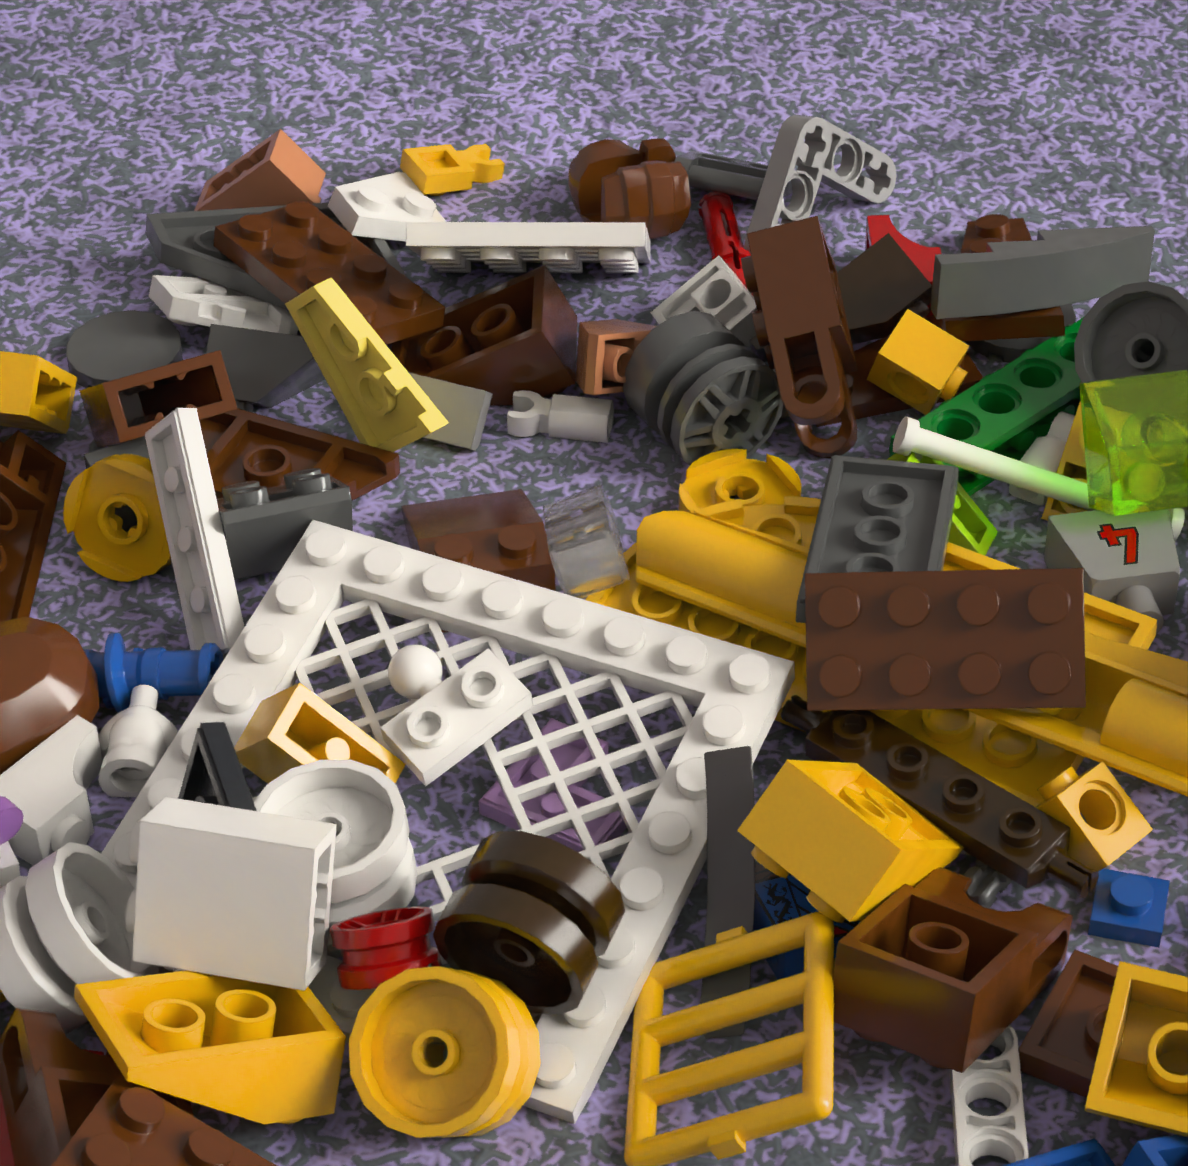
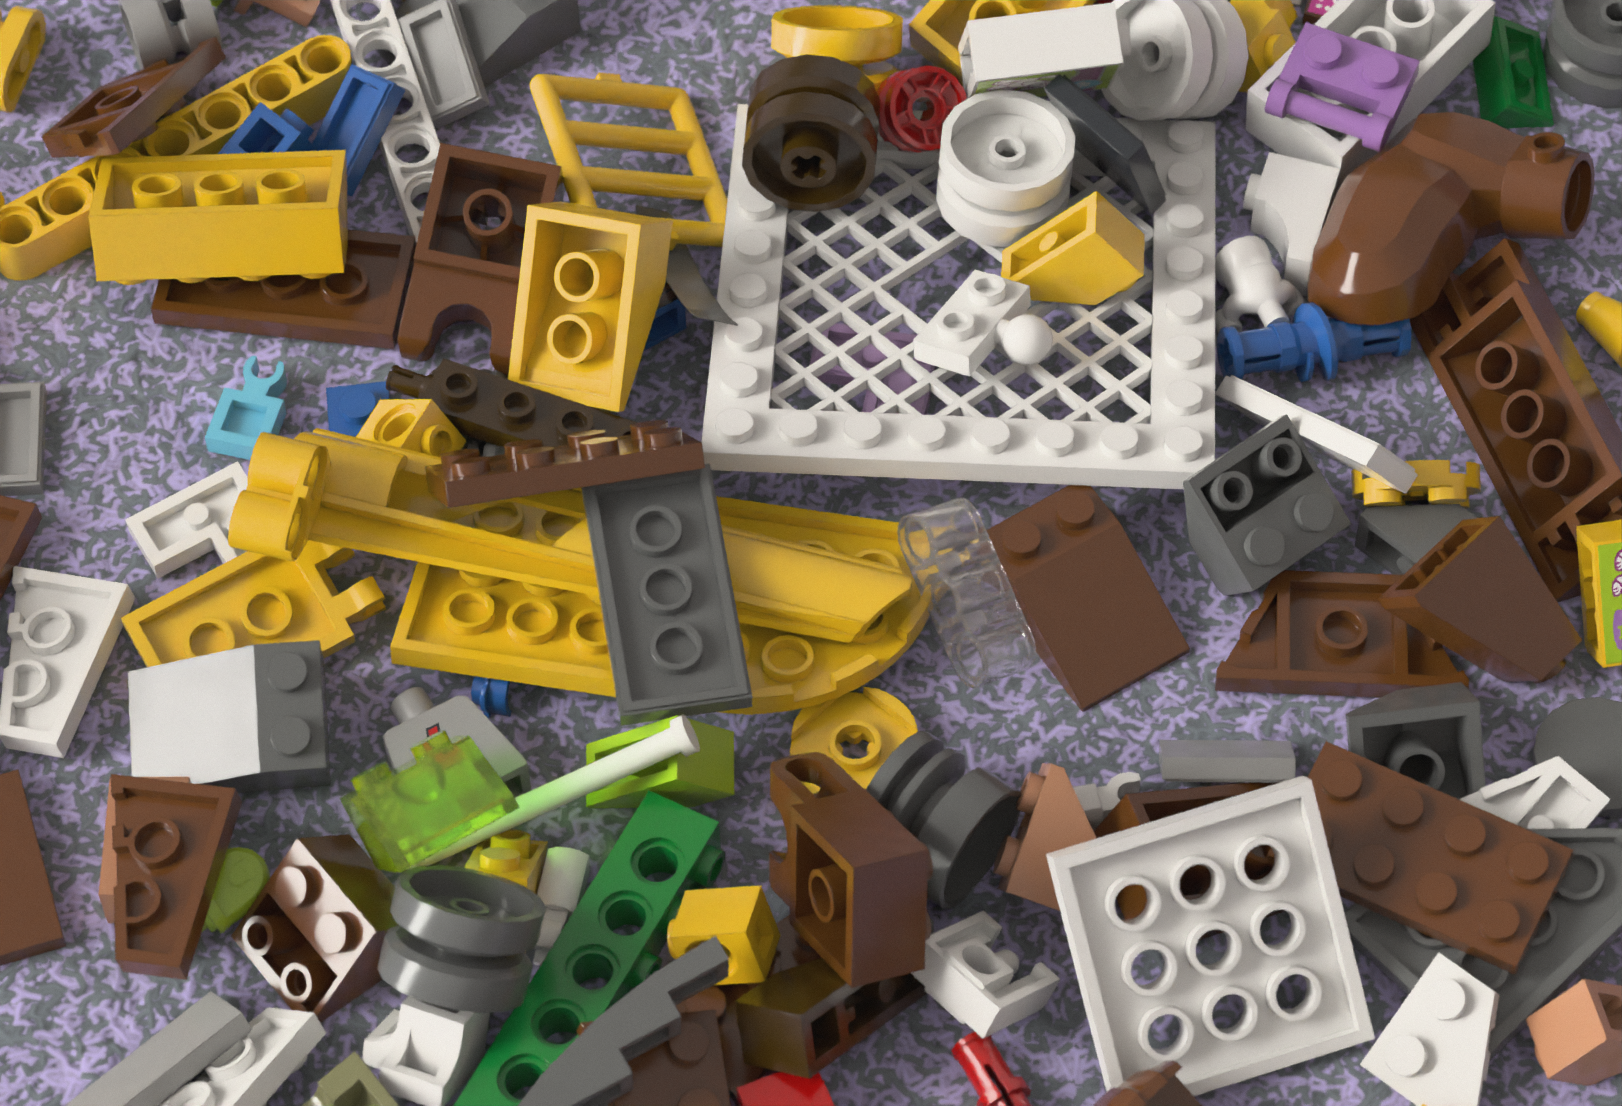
camera: 160 degrees right, 15 degrees up
(363, 373) = (1281, 691): light yellow wing -> none

